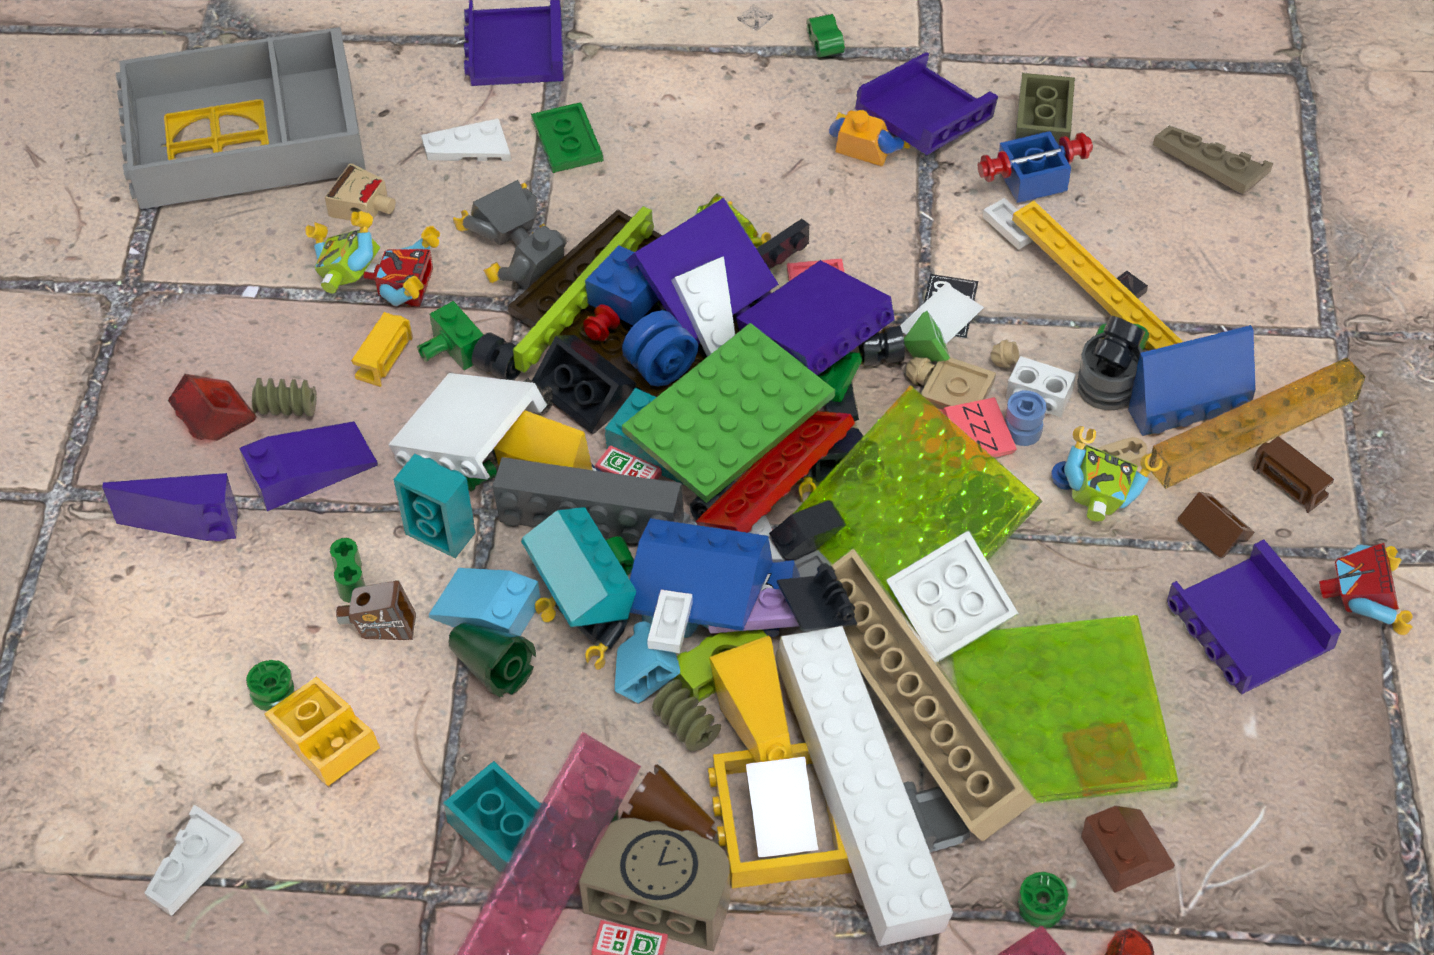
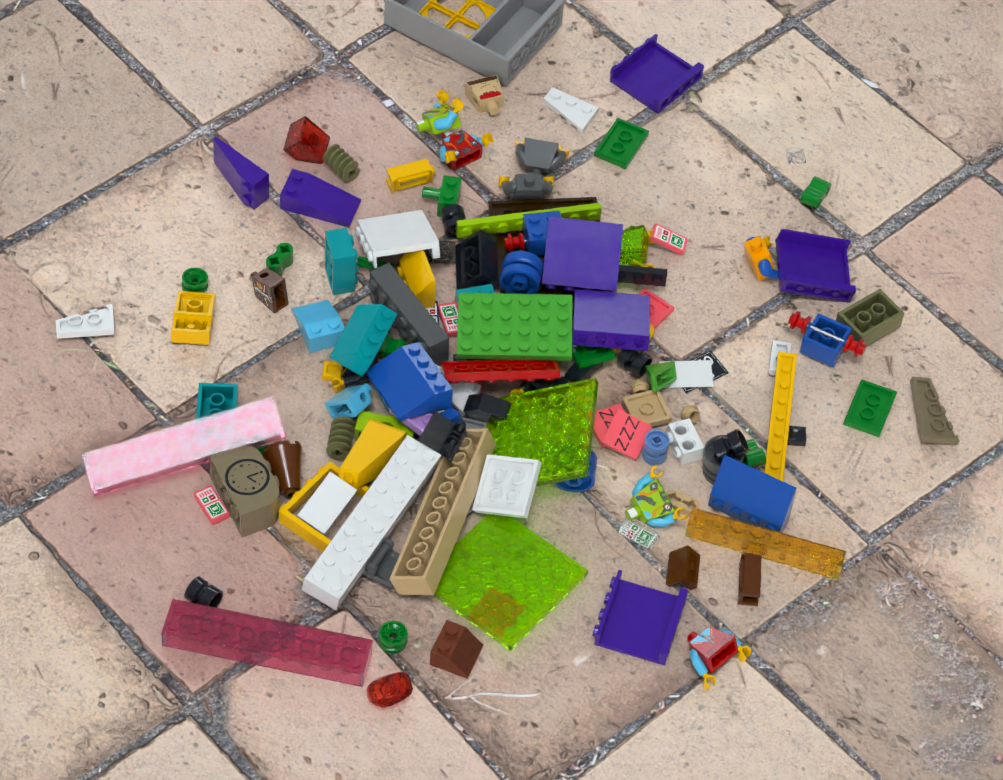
camera: 40 degrees right, 0 degrees up
(493, 656) = (292, 347): dark green cone -> none
(568, 646) = (331, 370): none -> yellow tile
(670, 621) = (371, 389): white plate -> none
(707, 303) = (566, 269): white wing -> none
(747, 193) = (668, 239): none -> tile
(1120, 527) = (638, 532): none -> clear tile
(1153, 202) = (870, 408): none -> green tile

